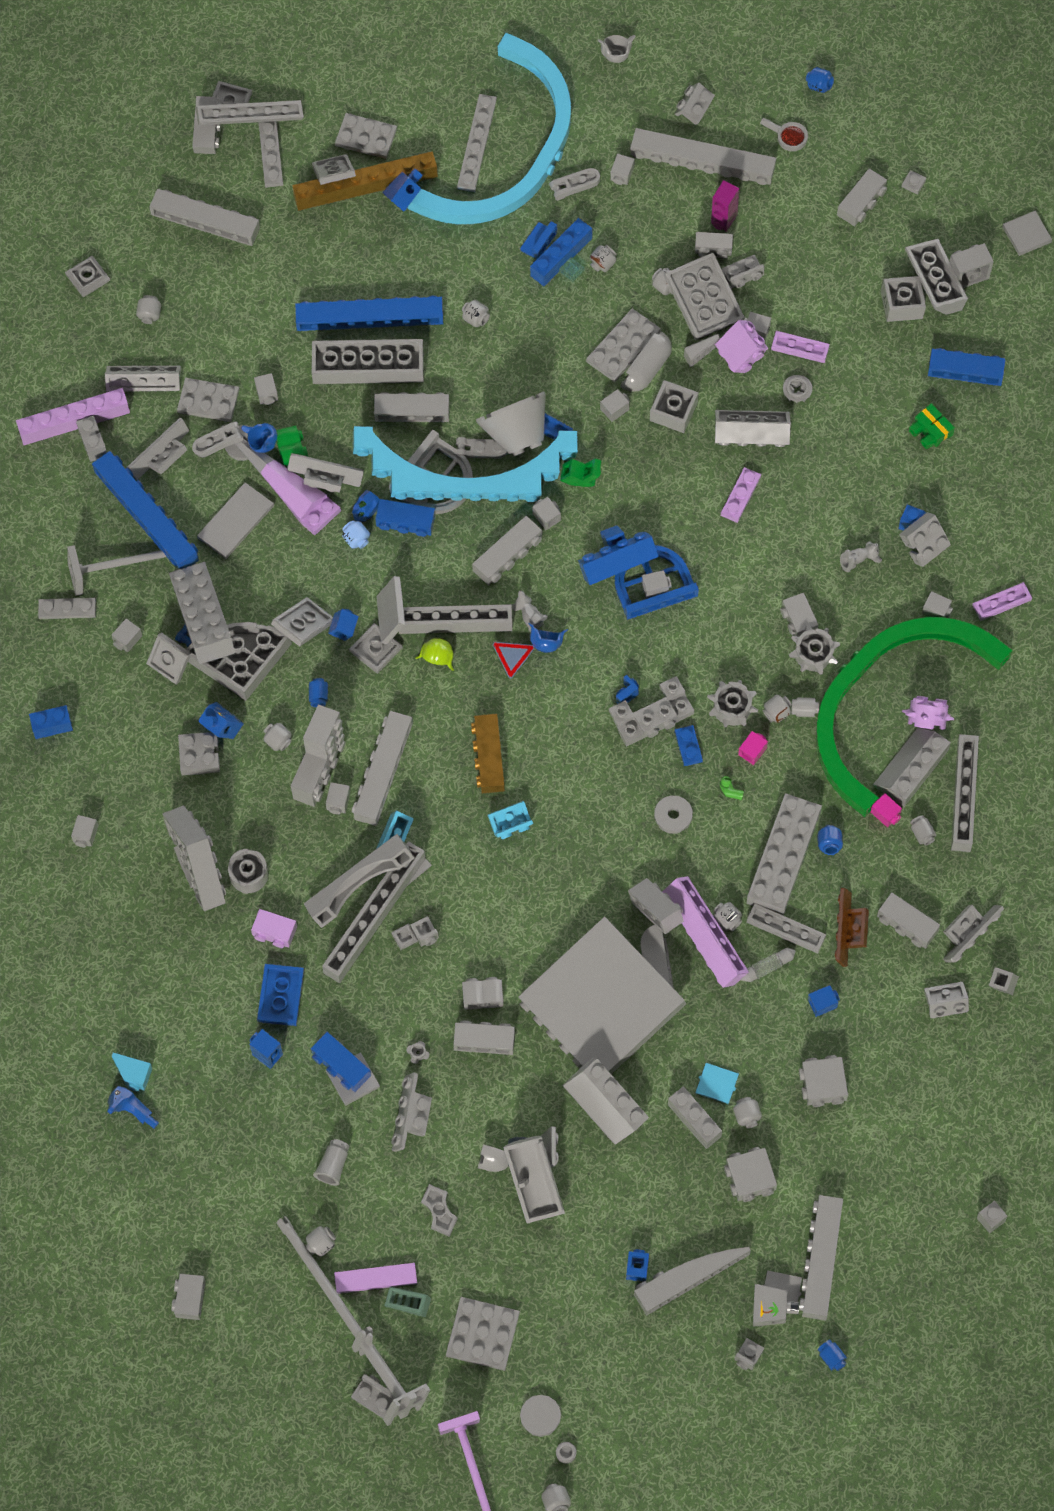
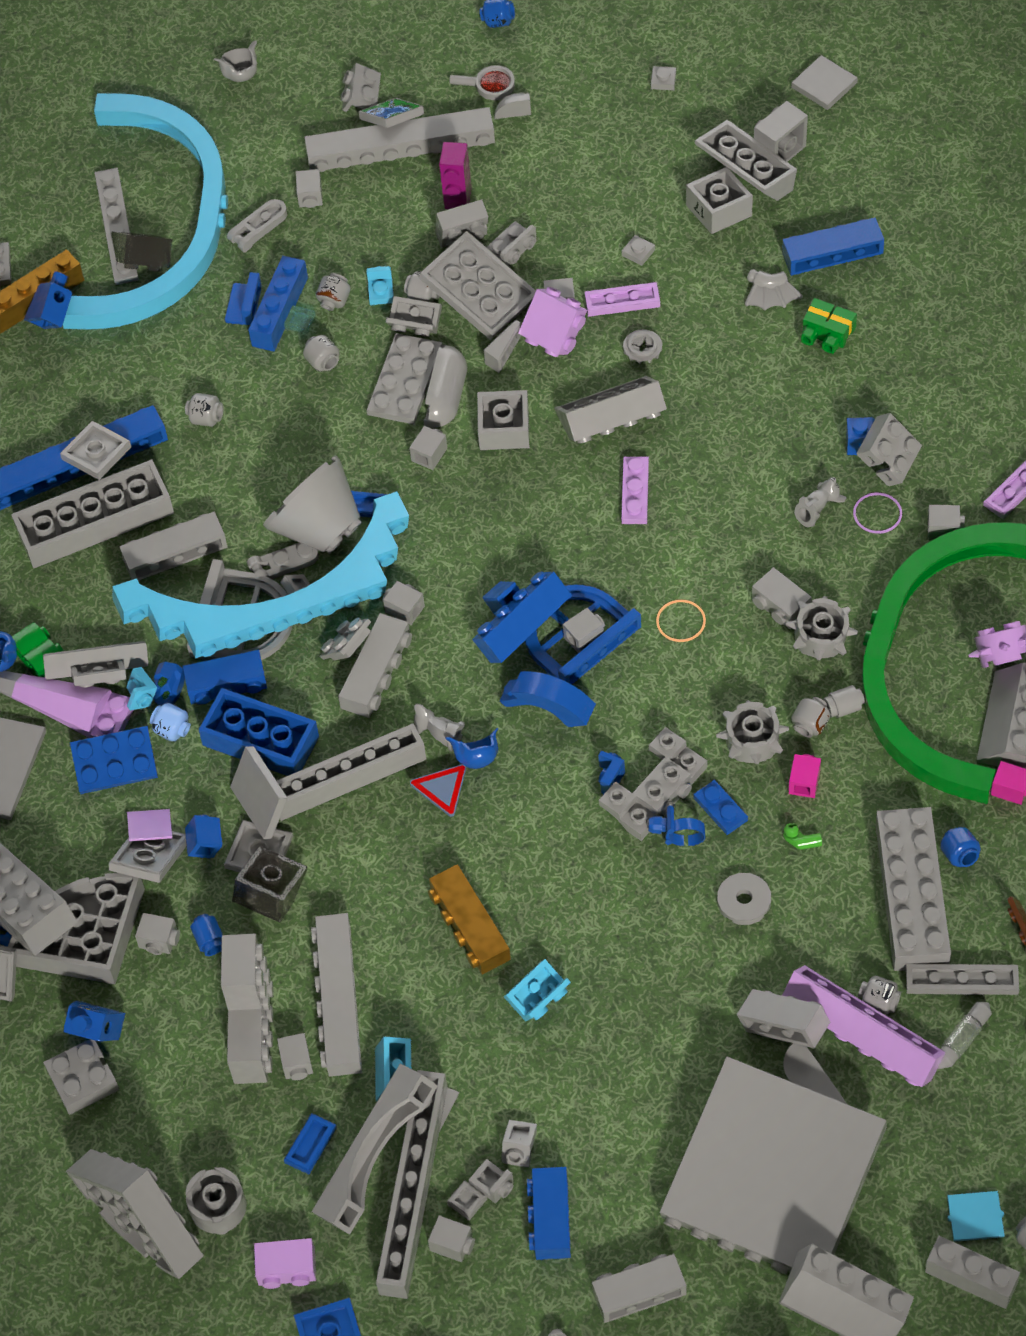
camera: 20 degrees left, 10 degrees down
(277, 736) = (178, 1011): light grey head -> none
(285, 679) = (157, 934): none -> light grey brick
(308, 545) = (113, 760): none -> blue plate
(312, 601) = (149, 825): none -> lavender window
(323, 858) = (310, 1143): none -> blue tile
(347, 503) = (141, 689): none -> medium azure bracket
(371, 675) = (268, 884): none -> clear smoke slope
(382, 957) = (451, 1239): none -> light grey brick
(387, 316) = (95, 450): none -> light grey plate
(417, 571) = (278, 735): none -> blue brick
(437, 652) = (342, 821): lime hair -> none
(451, 967) = (549, 1213): none -> blue brick
(452, 914) = (518, 1143): none -> light grey bracket
(480, 469) = (294, 583): none -> light grey plate
(482, 993) = (608, 1230): light grey brick -> none
(484, 171) = (142, 249): none -> clear smoke slope
(497, 525) = (348, 639): none -> light grey piece
(573, 303) = (321, 353): none -> light grey head
(581, 474) = (425, 541): green brick -> none
(611, 621) = (551, 694): none -> blue arch
(638, 266) = (380, 285): none -> medium azure bracket
(649, 749) = (669, 825): none -> blue piece
(650, 300) = (414, 315): none -> light grey bracket
(705, 133) = (391, 112): none -> tile
(733, 617) = (680, 640): none -> light nougat piece
(796, 161) = (513, 106): none -> light grey brick
(830, 312) = (638, 250): none -> light grey plate
(862, 197) = (612, 114): light grey brick -> none
(890, 594) = (882, 494): none -> lavender piece
(907, 382) = (770, 290): none -> light grey arm

